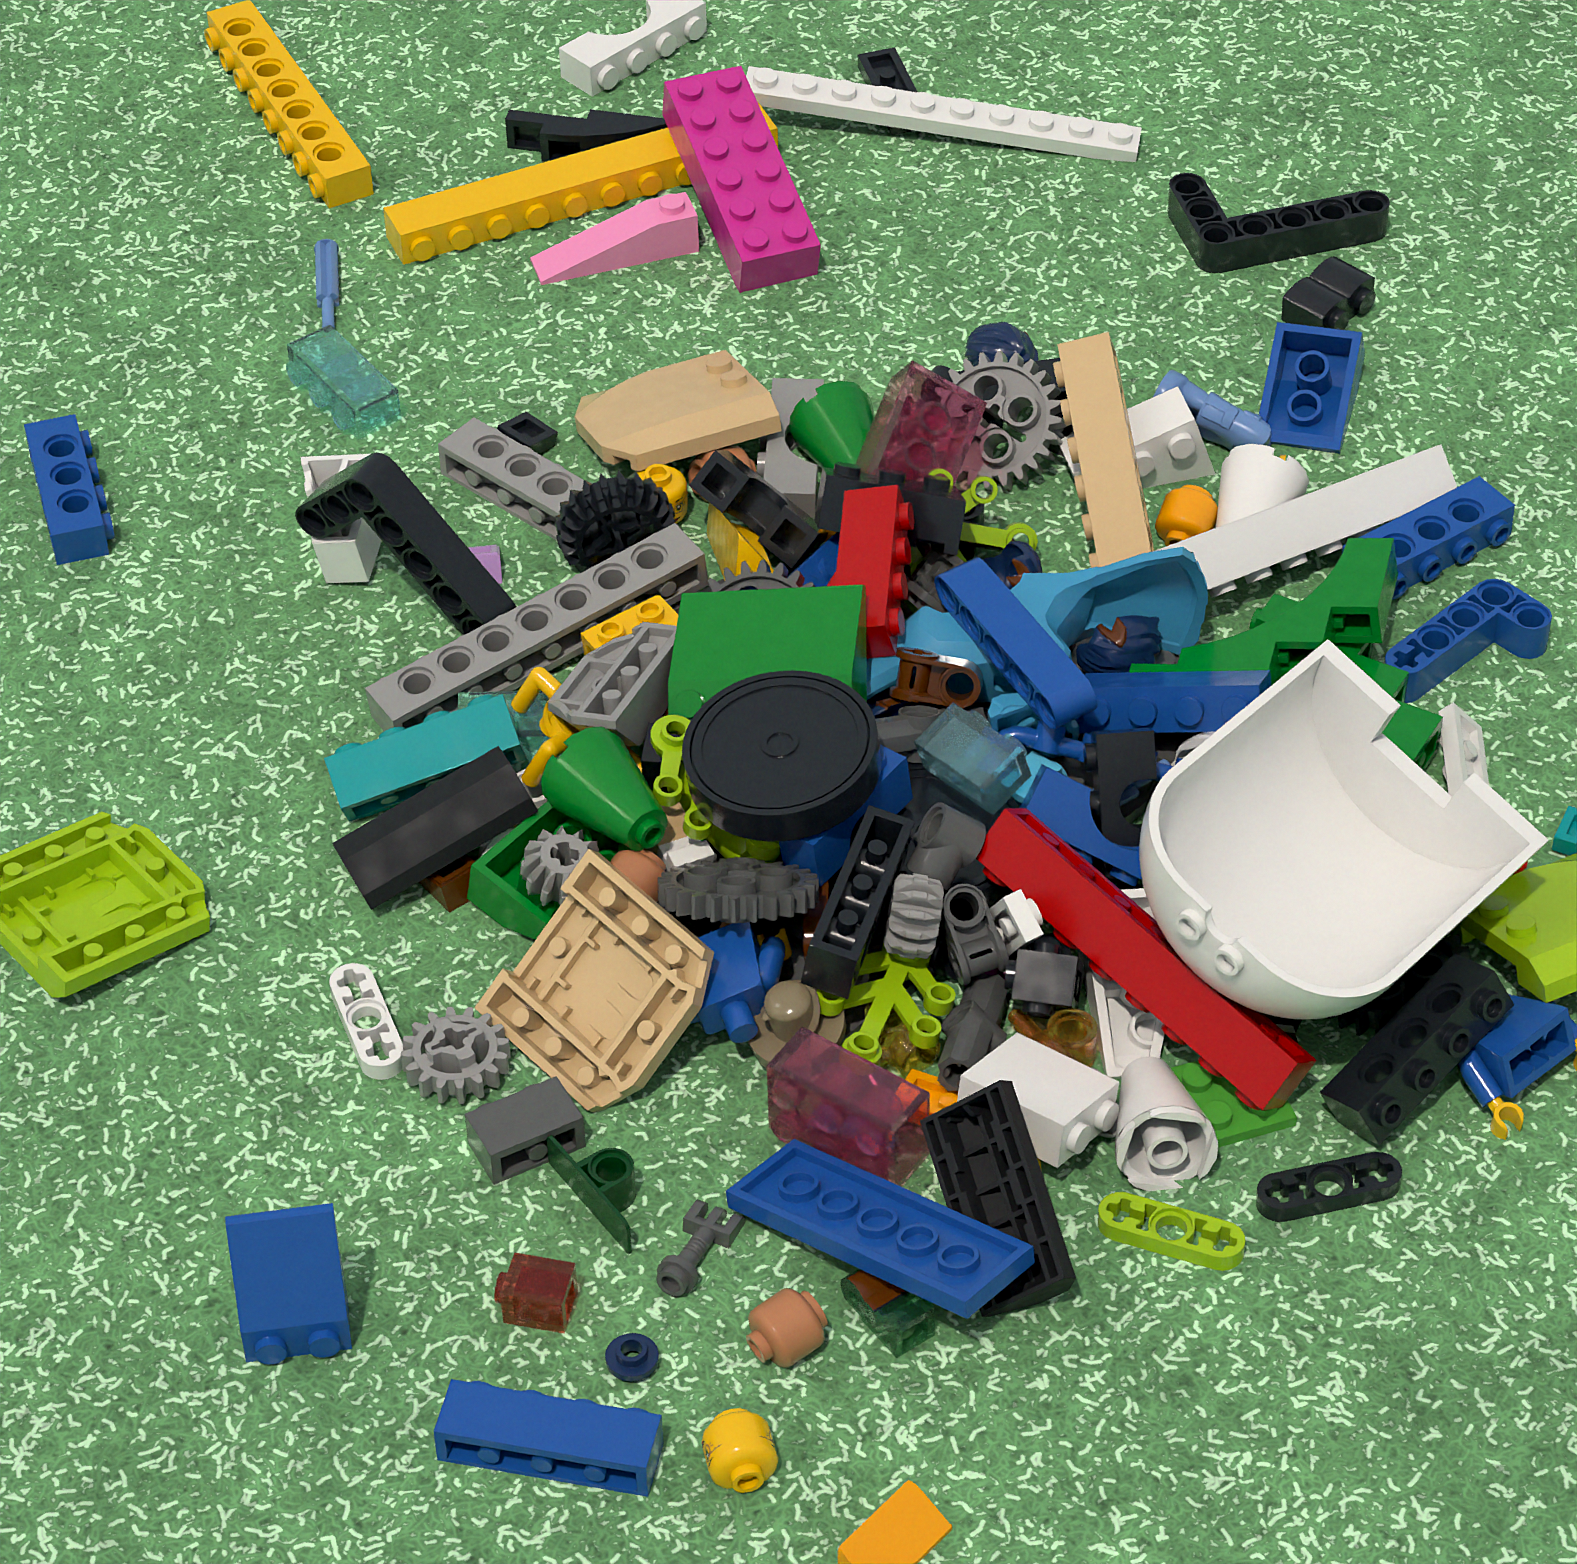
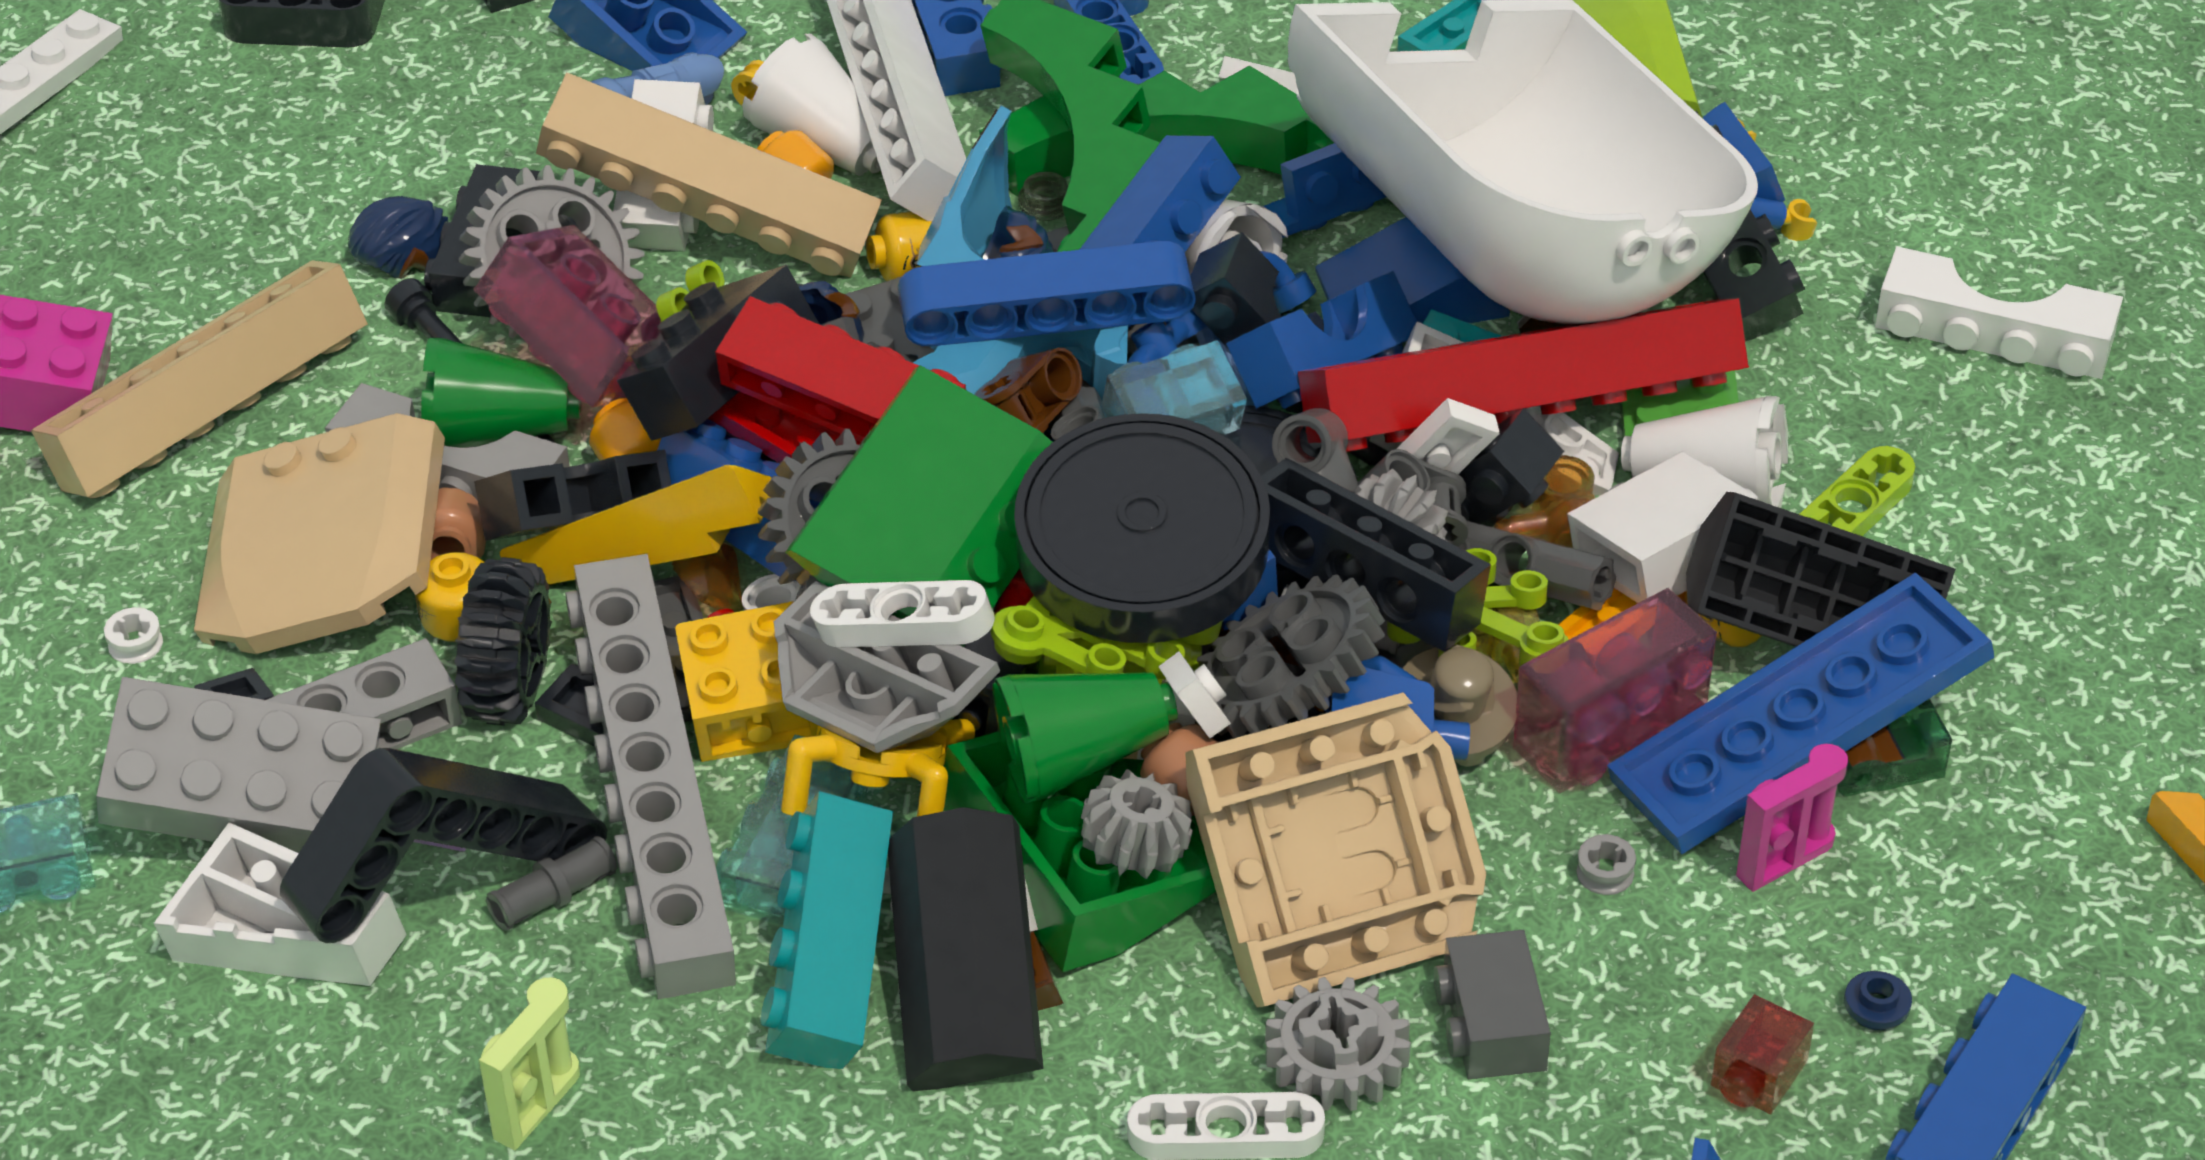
camera: 70 degrees left, 0 degrees up
(244, 659) = (529, 1064): none -> yellowish green plate
(431, 435) = (209, 758): none -> light grey brick
(433, 628) = (551, 883): none -> dark grey pin
(567, 364) = (128, 621): none -> white bush
(602, 1183) = (1619, 956): dark green piece -> none
(646, 665) = (945, 613): none -> white beam
(663, 845) = (1198, 692): none -> white plate
(677, 1272) = (1706, 878): dark grey hinge -> none
(710, 1158) = (1611, 848): none -> light grey bush
(739, 1449) = (2055, 934): yellow head -> none
(748, 1239) = (1790, 818): none -> dark pink plate
(786, 1327) = (1896, 842): nougat head -> none
(796, 310) = (200, 379): none -> tan brick
(1336, 1171) = (1847, 357): black beam -> none
(1461, 1326) = (2062, 331): none -> white arch

